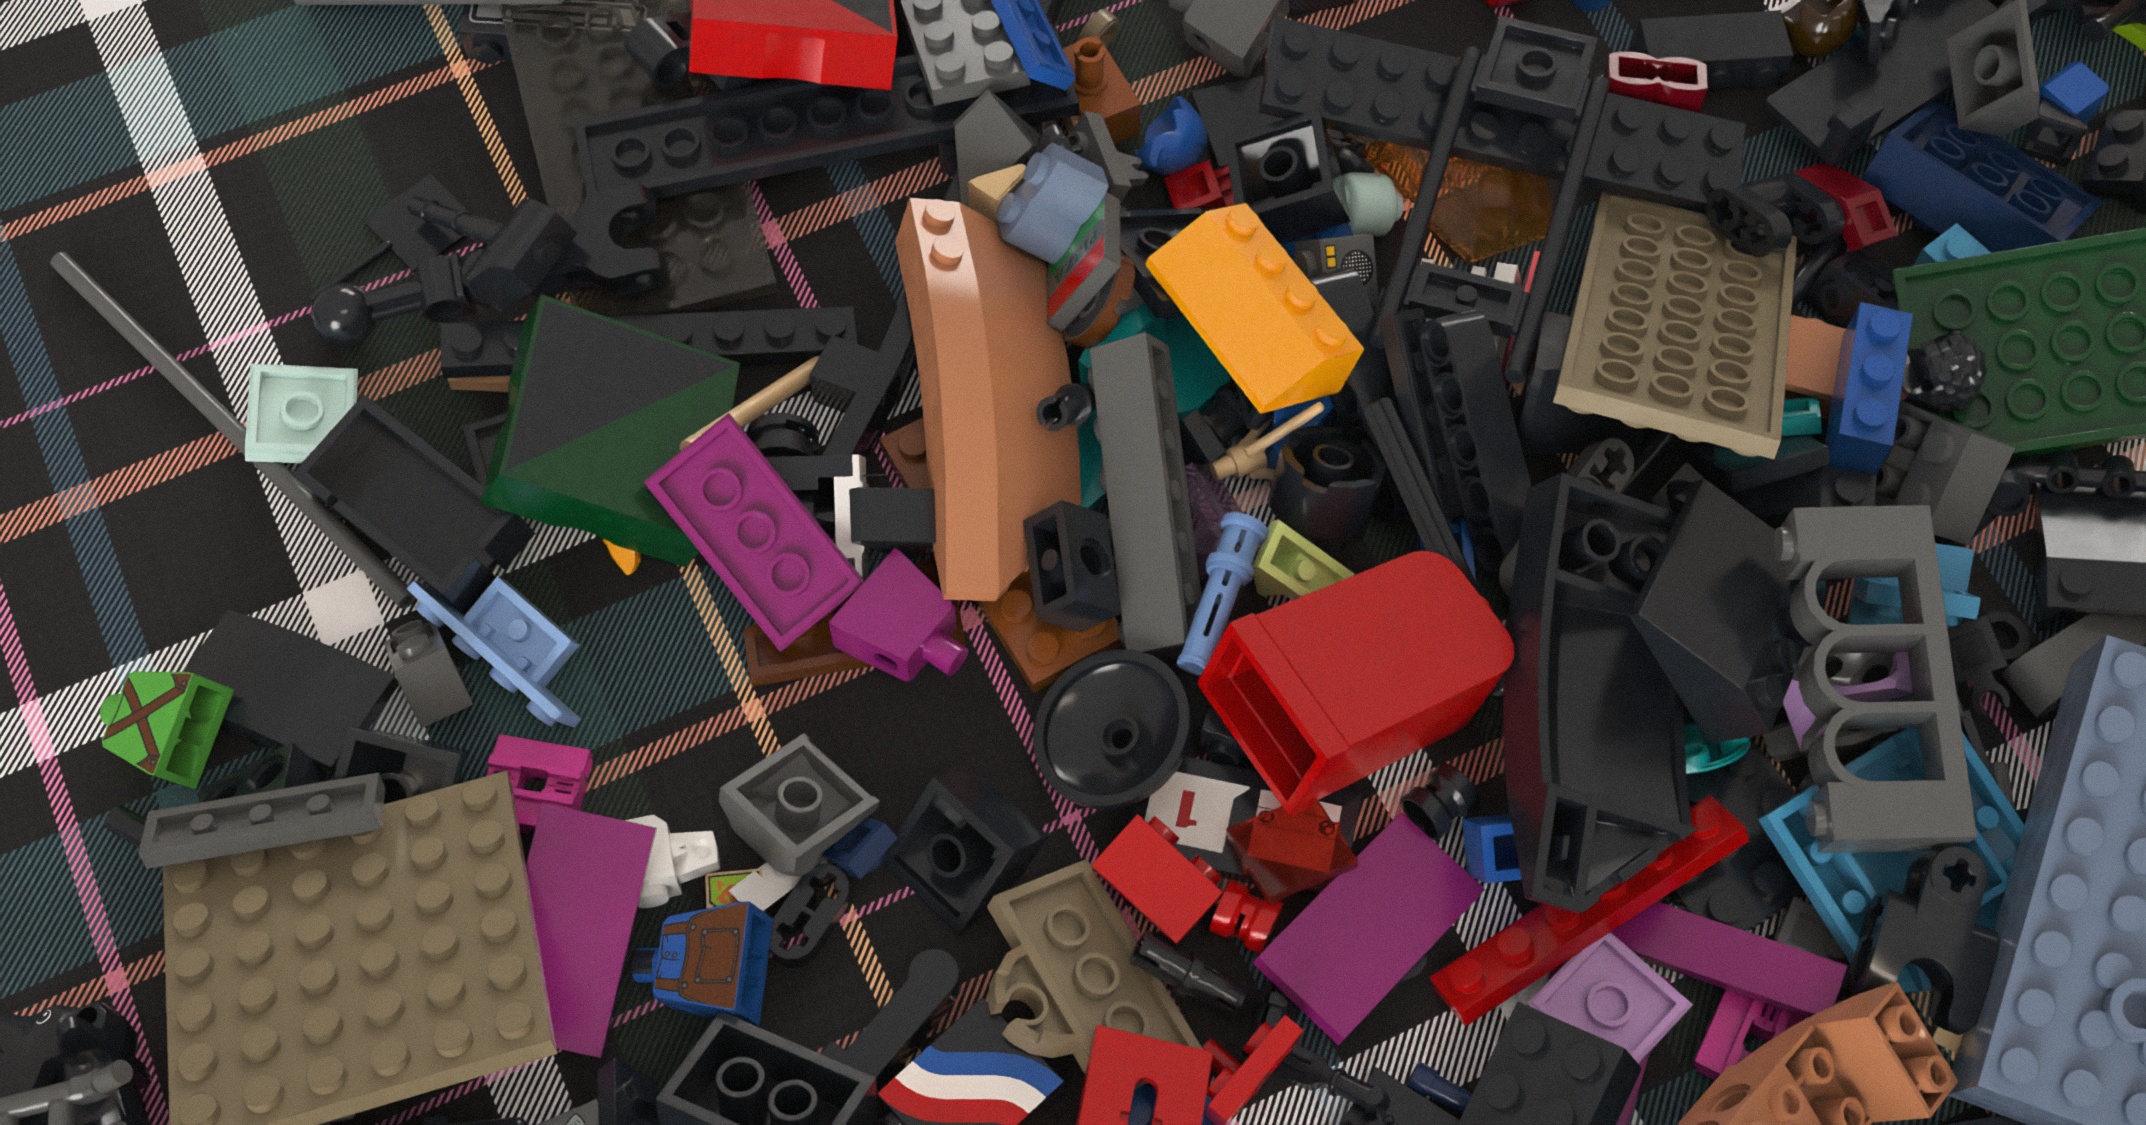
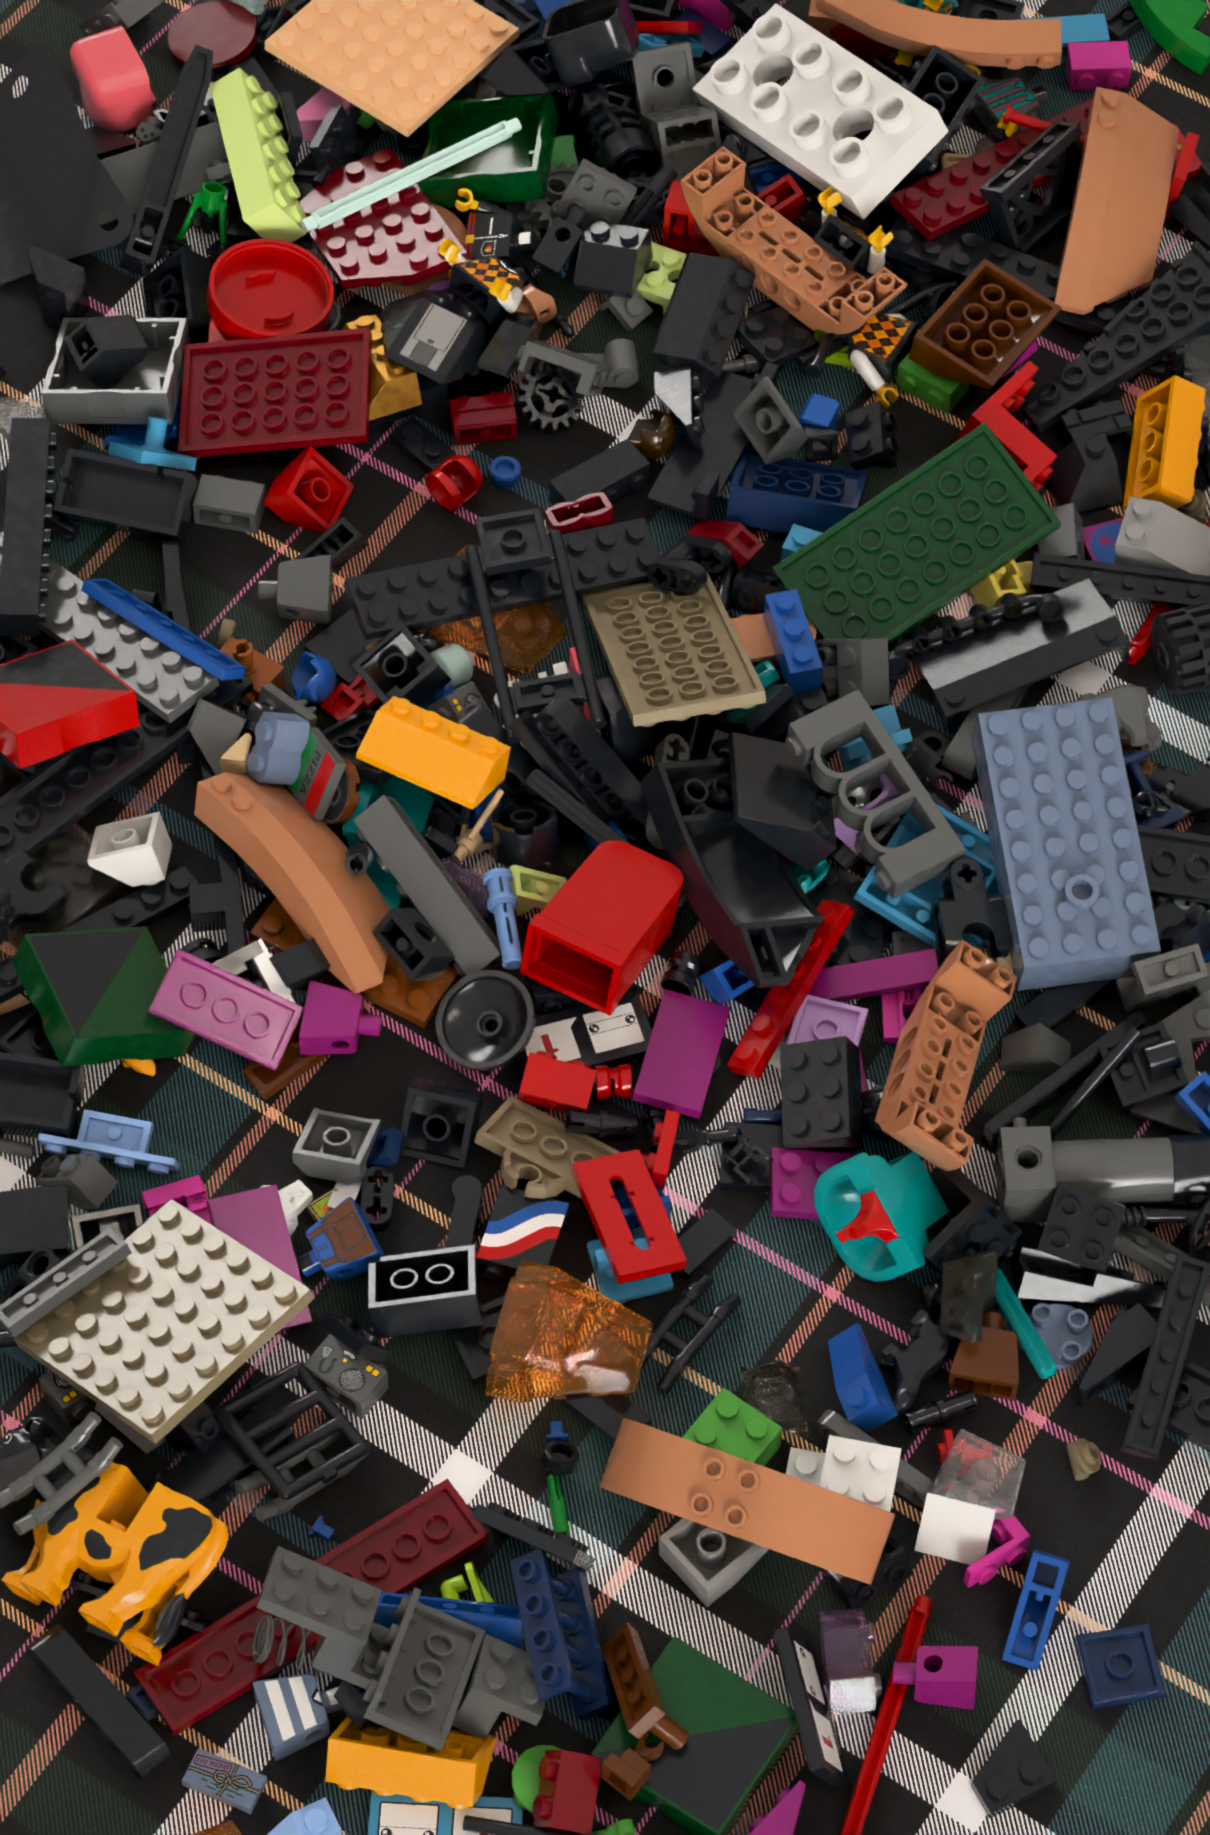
camera: 30 degrees left, 5 degrees down
(765, 399) = (172, 943): tan bar -> none
(791, 253) = (132, 850): none -> white slope
(1292, 851) = (618, 1035): clear red piece -> none
(1945, 372) = (830, 613): black piece -> none

